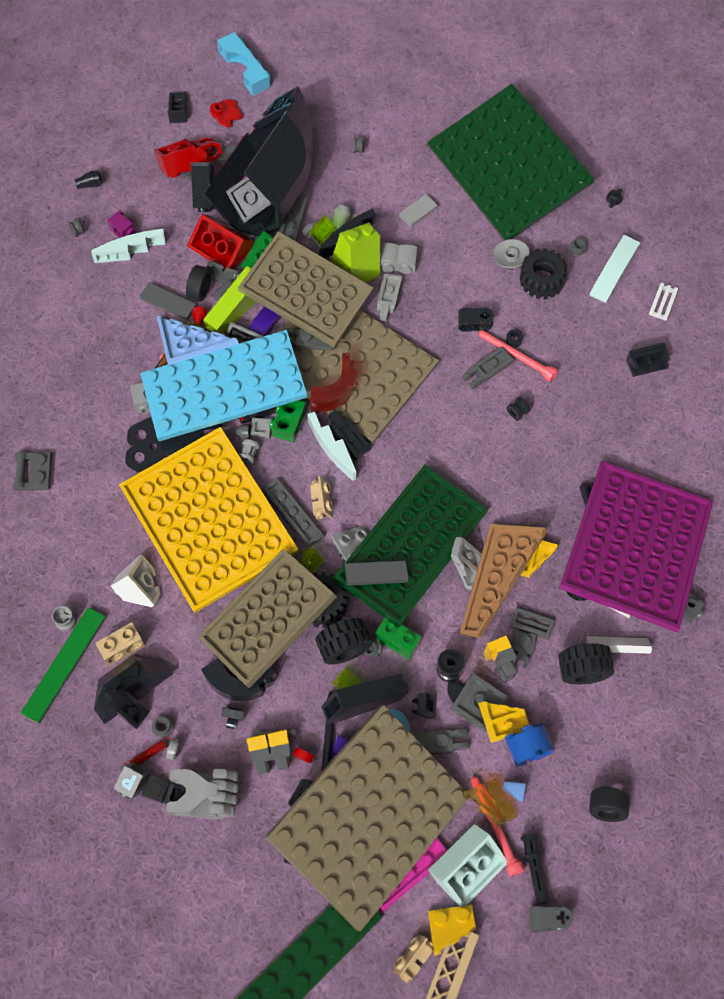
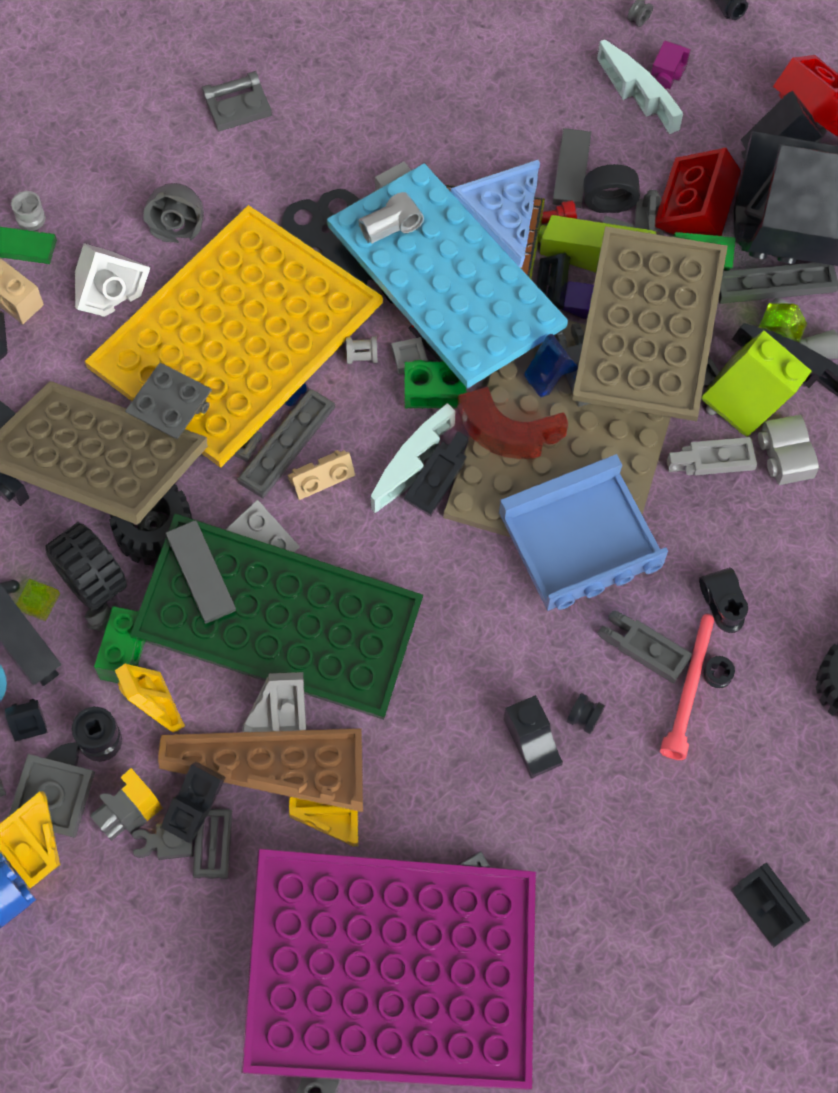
camera: 70 degrees right, 0 degrees up
(106, 528) = (170, 208): none -> dark grey cylinder
(179, 395) = (399, 214): none -> light grey piece
(243, 431) = (392, 333): dark grey hinge -> none
(250, 563) = (169, 401): none -> dark grey hinge
(309, 351) = (548, 366): none -> clear blue slope
(310, 560) = (211, 488): clear neon green tile -> none
(417, 374) = (581, 534): none -> medium blue panel
(433, 630) = (150, 694): none -> yellow wing
(510, 622) = (193, 802): none -> black slope
(519, 439) = (532, 736): none -> black arch
(586, 664) = (149, 939): black tyre -> none
(623, 644) = (212, 991): white tile -> none

